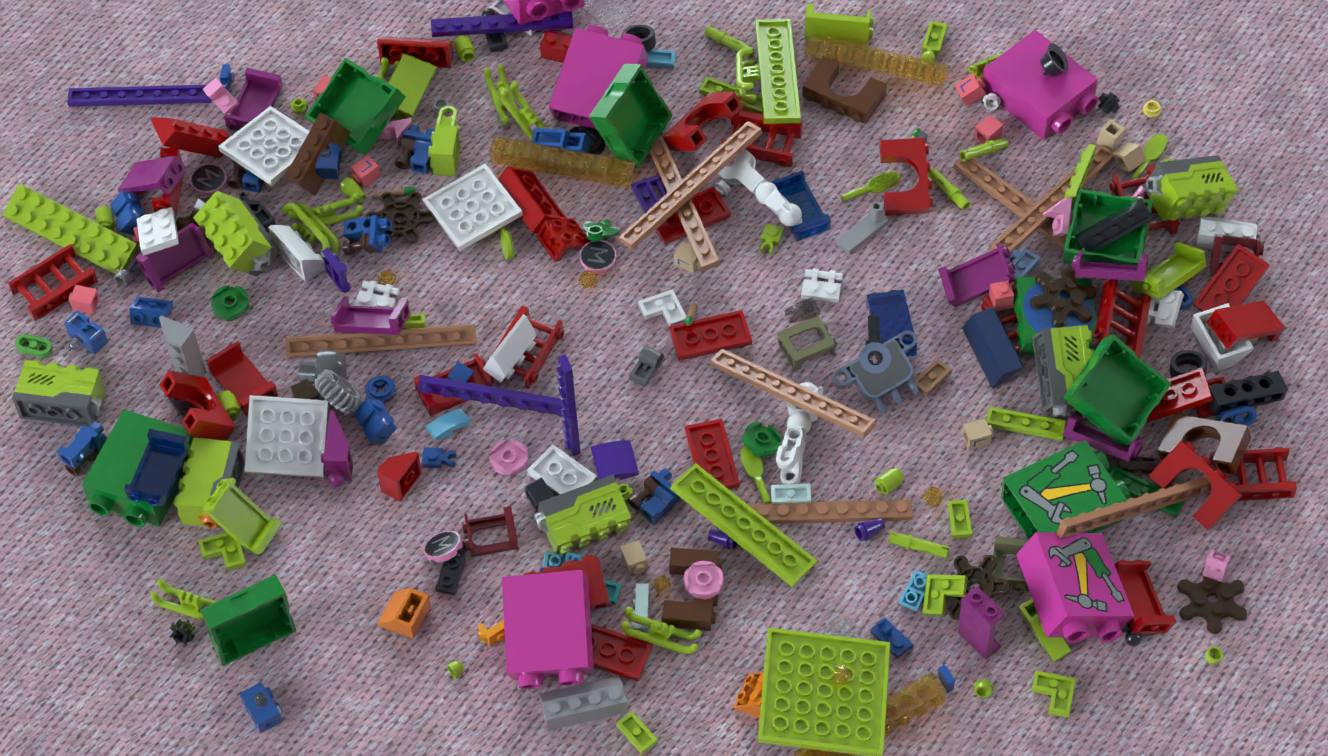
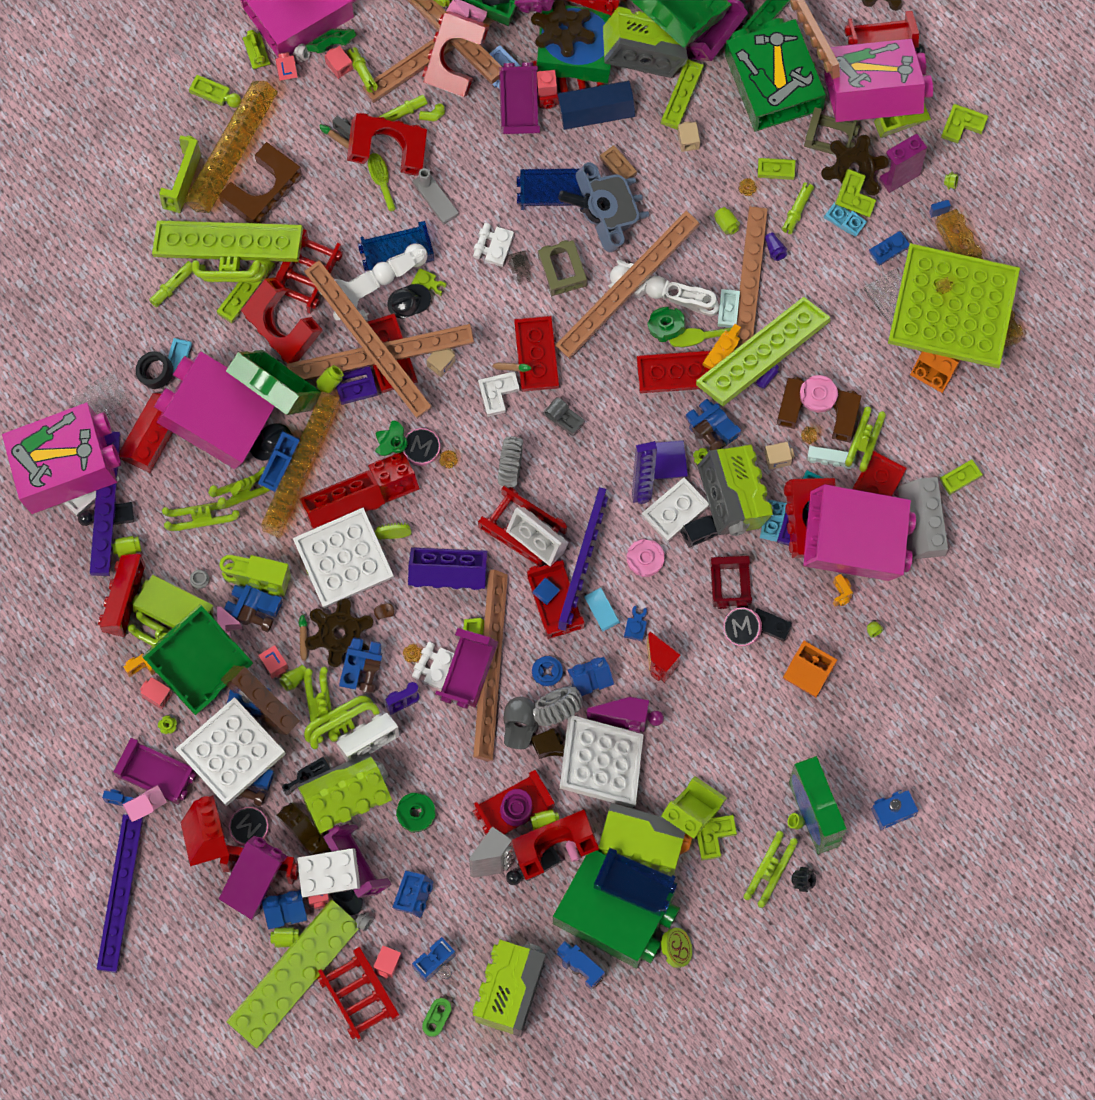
camera: 85 degrees left, 15 degrees up
(105, 527) = (676, 947): none -> lime tile
(239, 379) = (516, 807): none -> magenta piece
(426, 250) = (384, 610): none -> reddish brown piece
(475, 291) = (447, 568): none -> dark purple slope
(587, 322) = (510, 461): none -> light grey gear
(649, 167) = (329, 379): none -> lime brick
(745, 491) = (724, 346): none -> light orange hinge
(747, 224) = (409, 301): none -> black piece
(955, 220) = (434, 115): none -> lime arm
(994, 209) = (438, 72): none -> arch
(1011, 121) = (331, 37): none -> green plate

